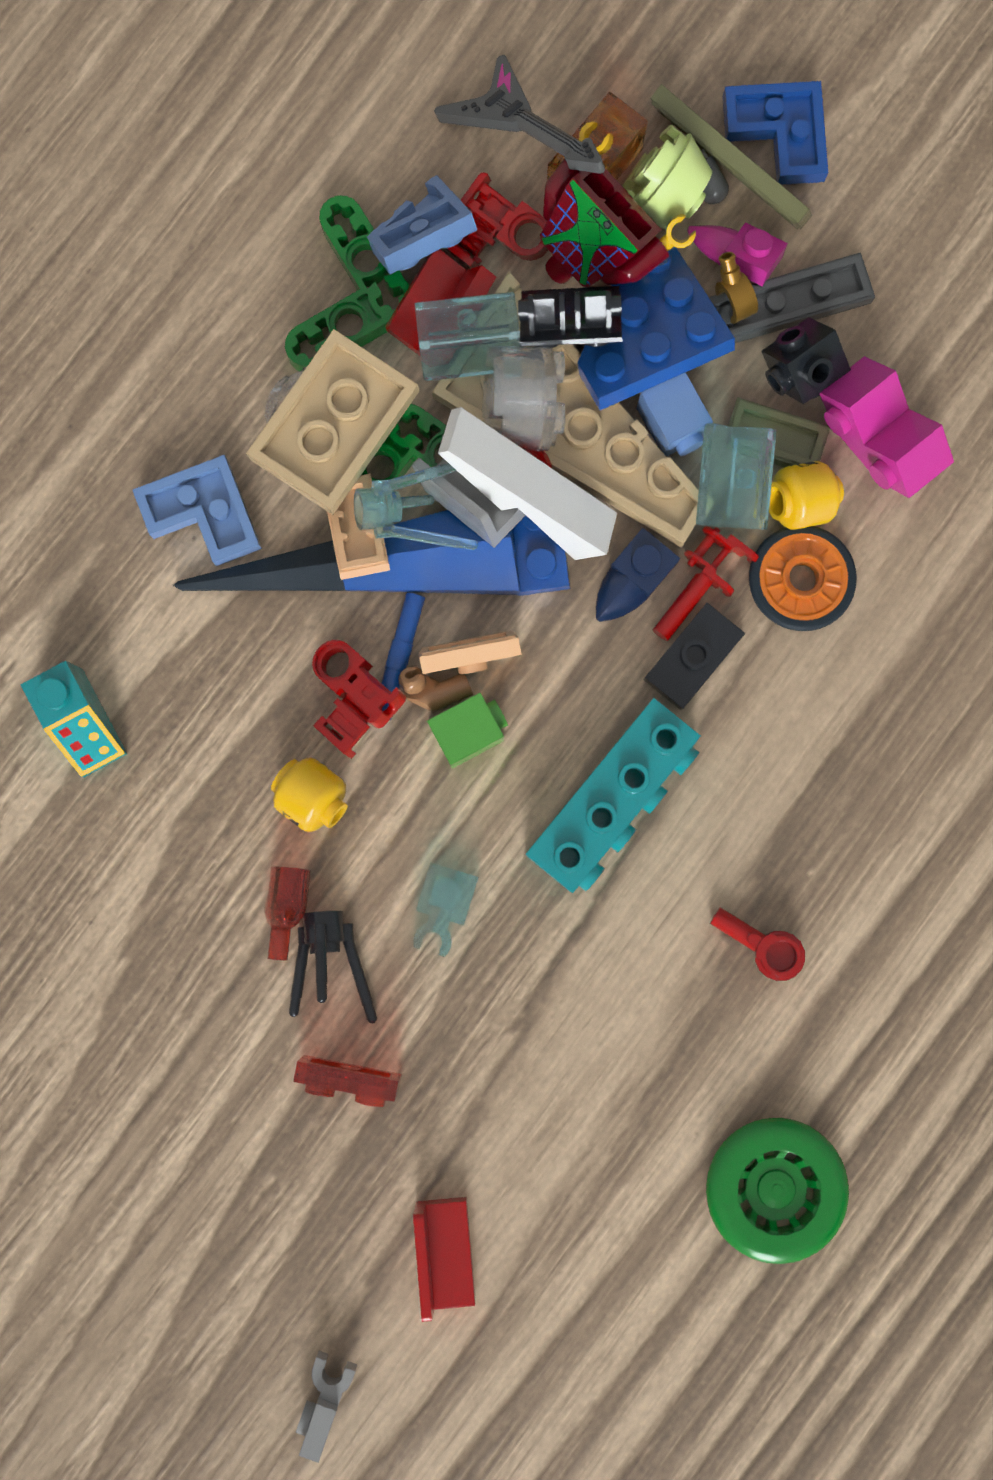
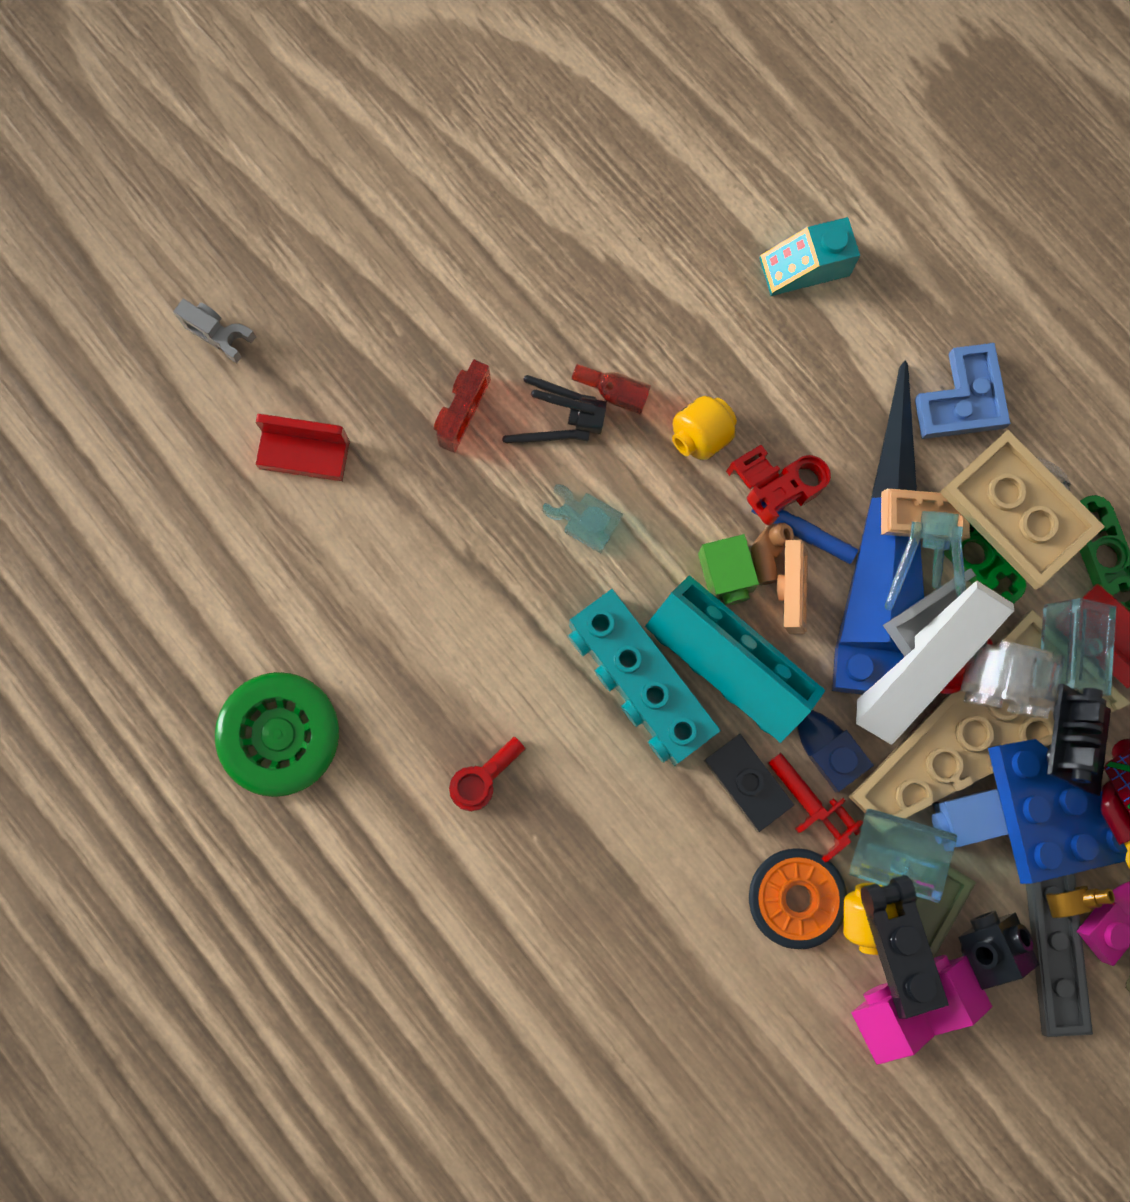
camera: 100 degrees right, 5 degrees down
(570, 704) = (735, 659): none -> teal brick
(837, 456) = (903, 948): none -> black plate

